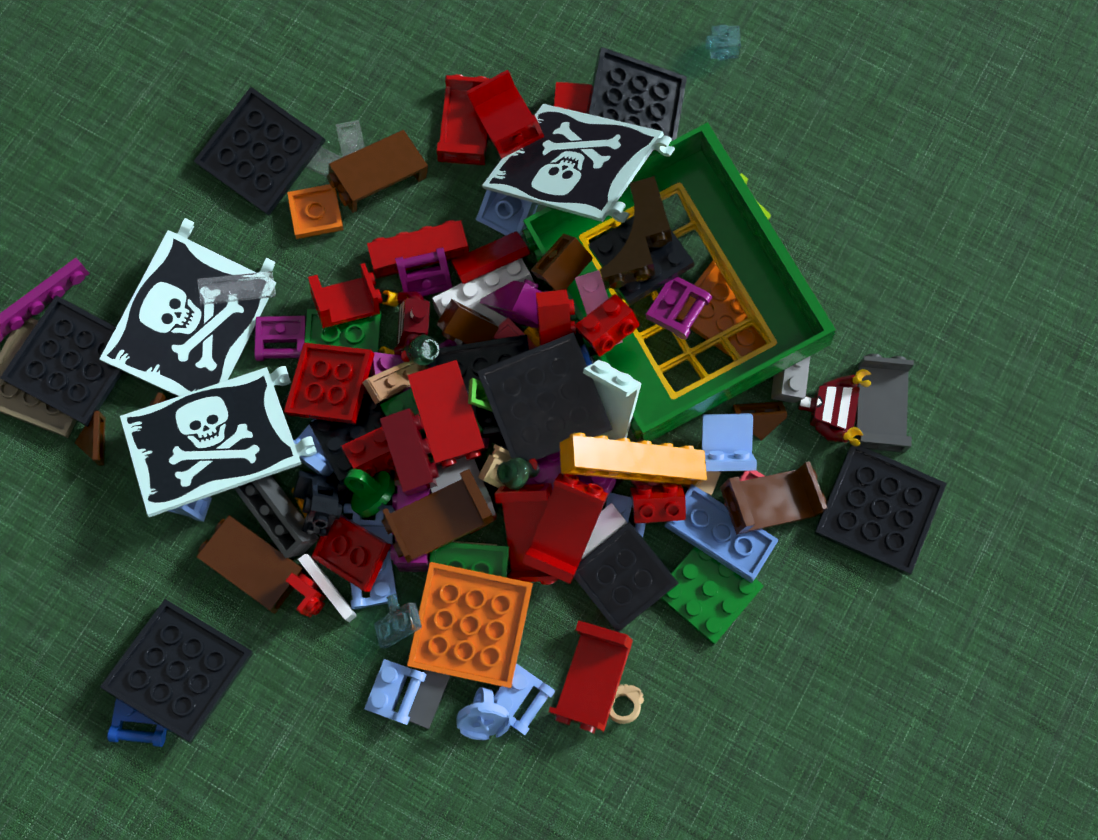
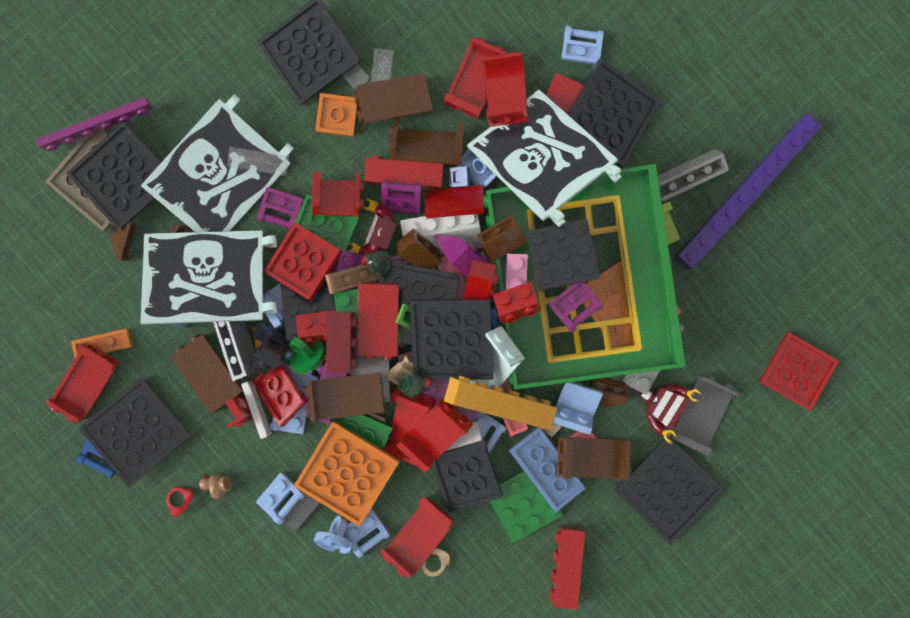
camera: 20 degrees right, 15 degrees up
(90, 632) = (83, 383): none -> red panel
(101, 577) = (107, 342): none -> orange tile
(271, 733) = (187, 494): none -> red piece
(306, 703) = (216, 485): none -> medium nougat animal
(397, 623) = (296, 452): clear light blue plate -> none
(435, 208) = (426, 145): none -> reddish brown panel
(485, 230) = (459, 176): none -> plate
(574, 54) = (581, 51): none -> light blue plate
(648, 230) = (575, 241): dark brown arch -> none
(658, 503) = (509, 434): red bracket -> none
(724, 42) = (700, 82): clear light blue brick -> none
(758, 134) = (691, 173): none -> light grey brick
(796, 648) = (568, 567): none -> red brick
(825, 140) = (747, 191): none -> dark purple brick
(973, 316) = (798, 371): none -> red plate

